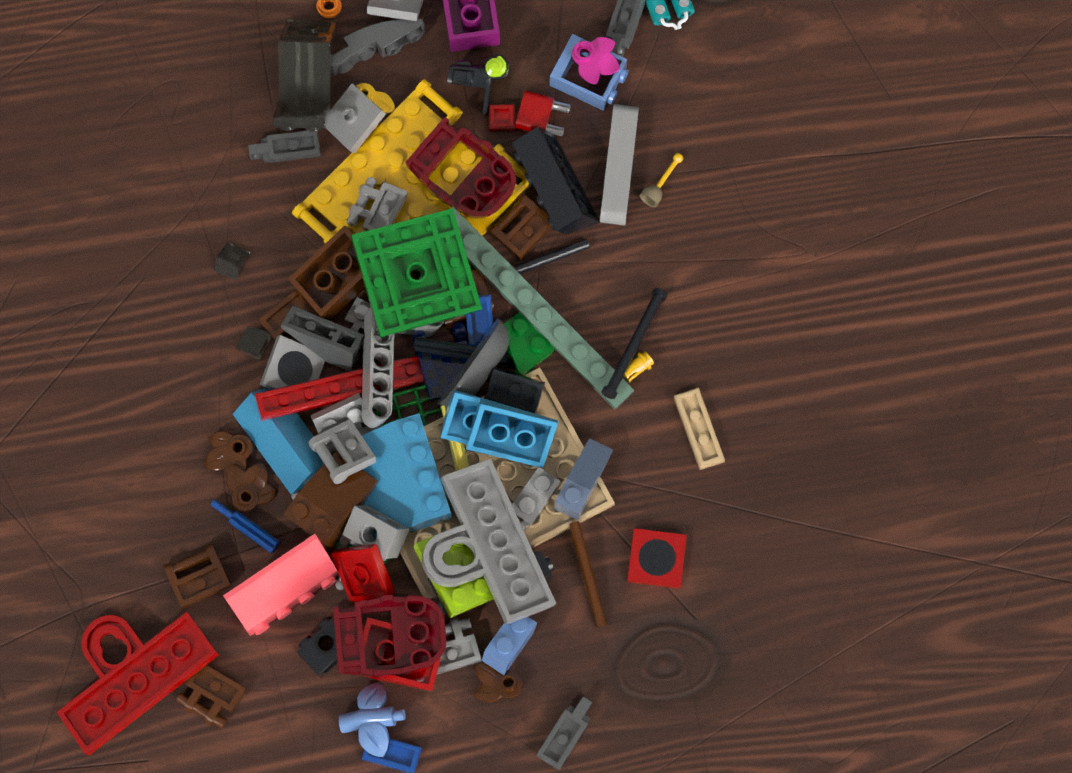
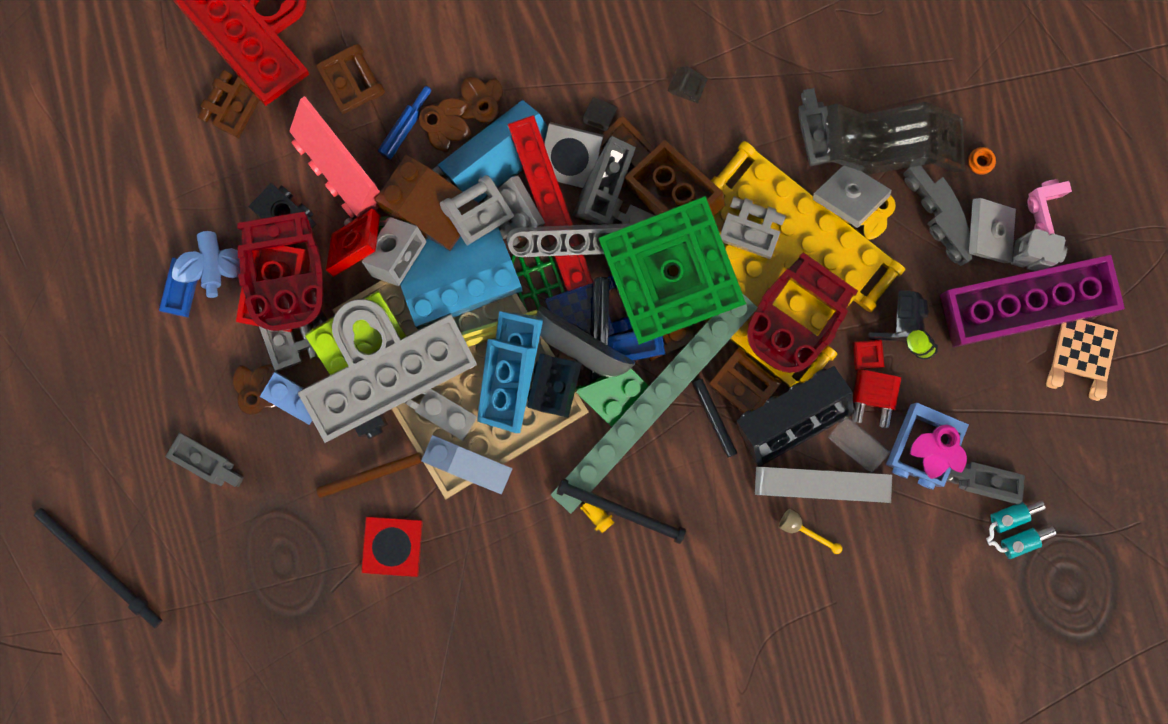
camera: 85 degrees right, 10 degrees up
(584, 131) = (859, 444): none -> clear tile
(699, 428) = (534, 585): tan tile -> none

